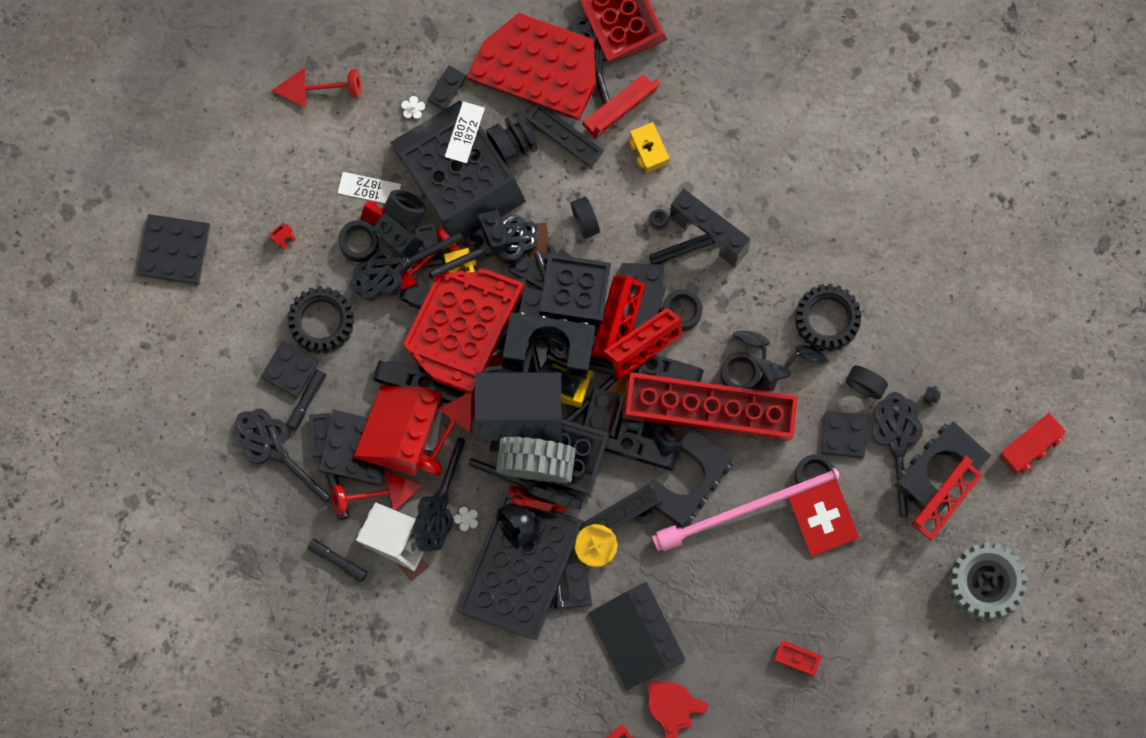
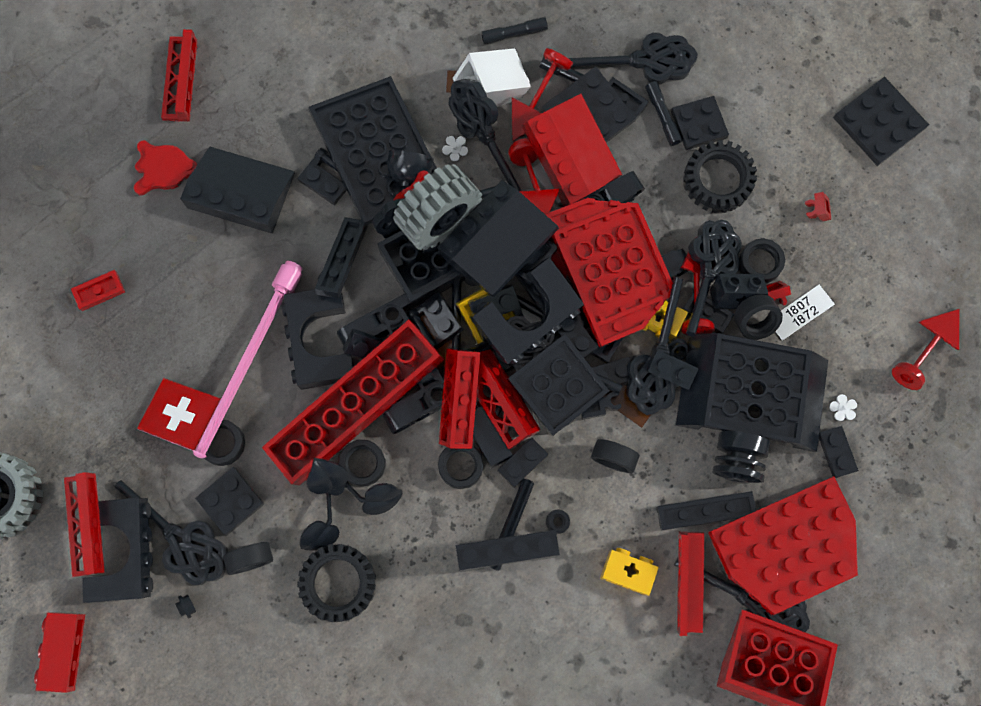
camera: 130 degrees right, 0 degrees up
(464, 132) = (783, 421): white sticker -> none
(596, 545) = (335, 217): yellow tile -> none

